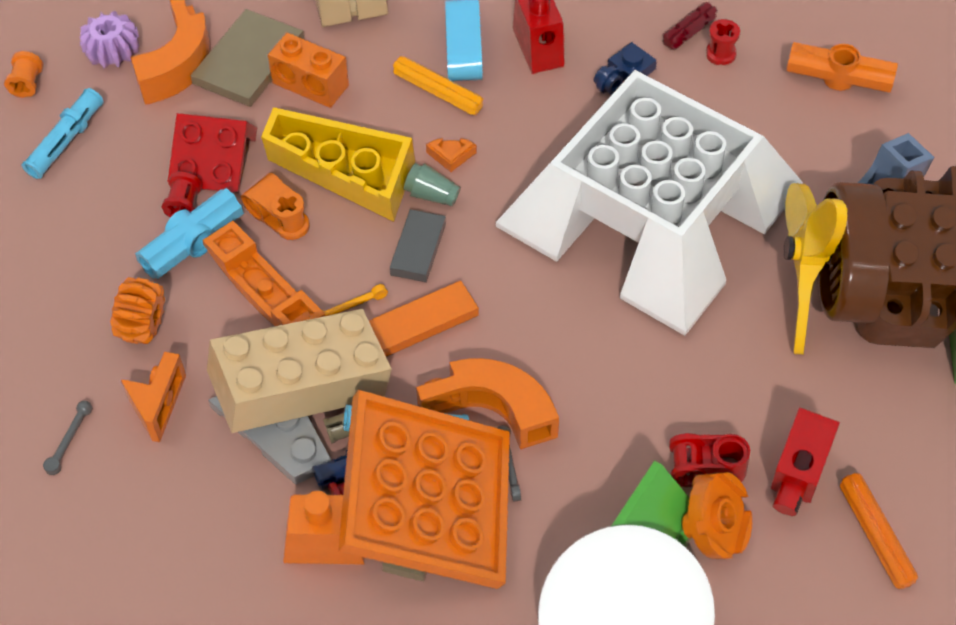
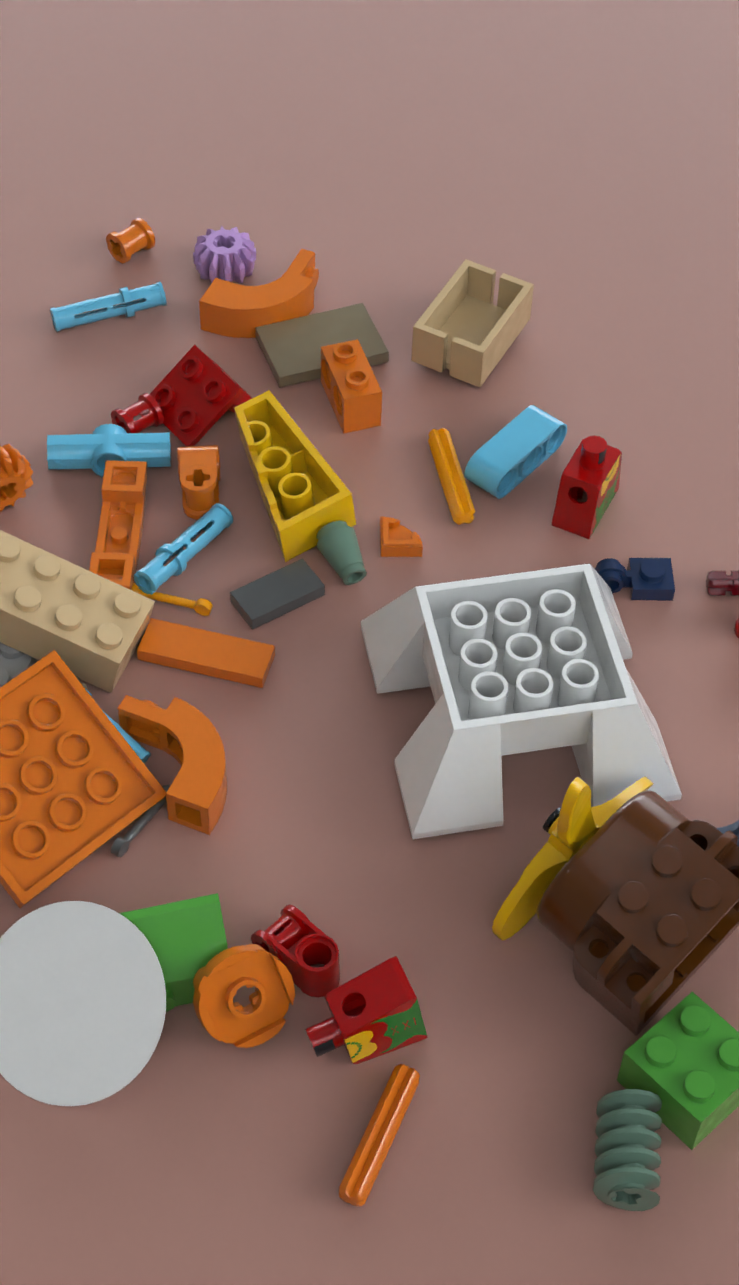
camera: 40 degrees right, 5 degrees down
(325, 272) = (155, 574): none -> medium azure pin

